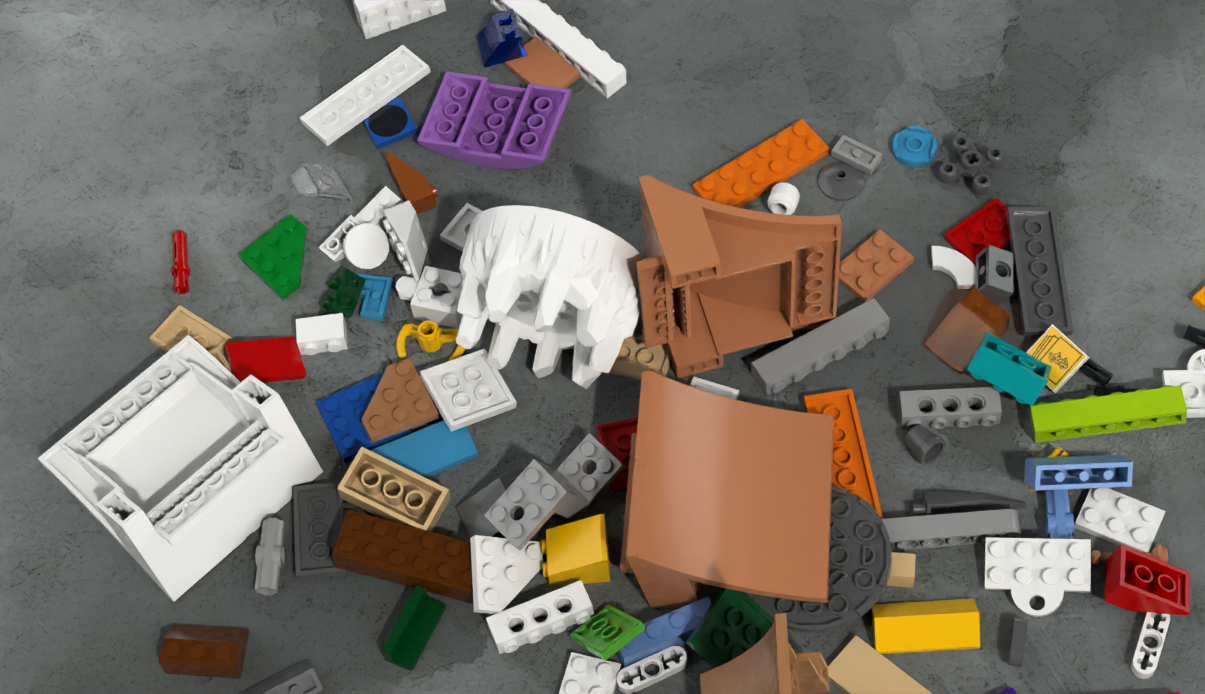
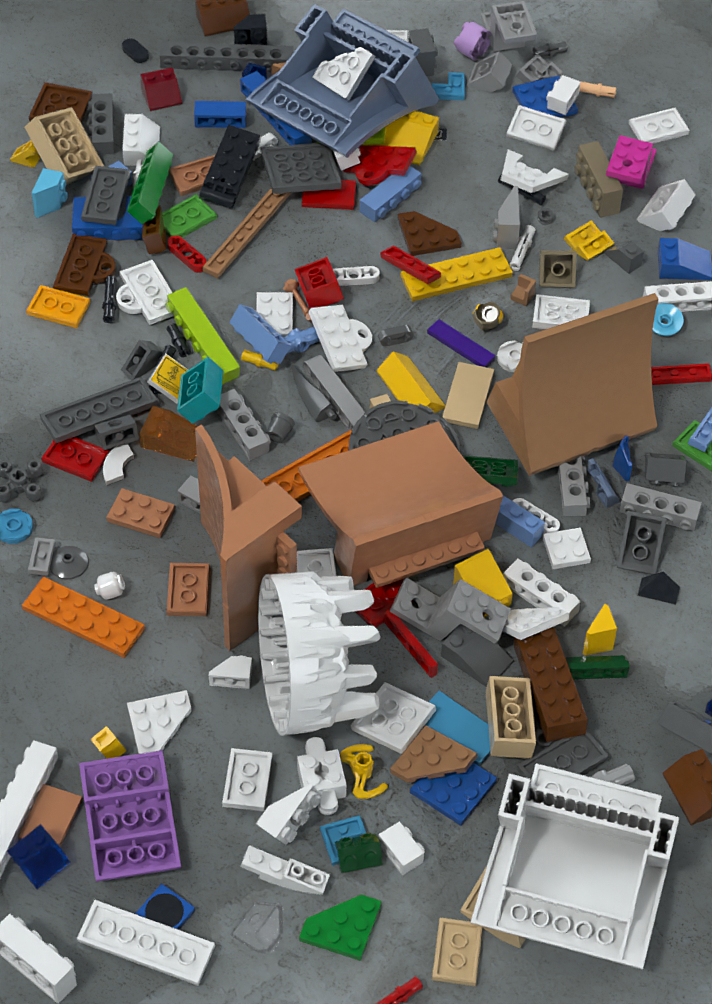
camera: 125 degrees left, 5 degrees down
(266, 359) = (449, 872): red tile -> none
(366, 246) = (306, 852): white tile -> none
(412, 184) = (228, 850): dark orange slope -> none
(441, 645) = (601, 633): none -> yellow slope
(540, 450) = (411, 643): none -> red tile
(585, 130) = (108, 744): none -> yellow brick
(597, 188) = (157, 719): none -> white plate
(607, 632) = (532, 538): bright green tile -> none
(1102, 343) = (142, 359): none -> dark grey slope

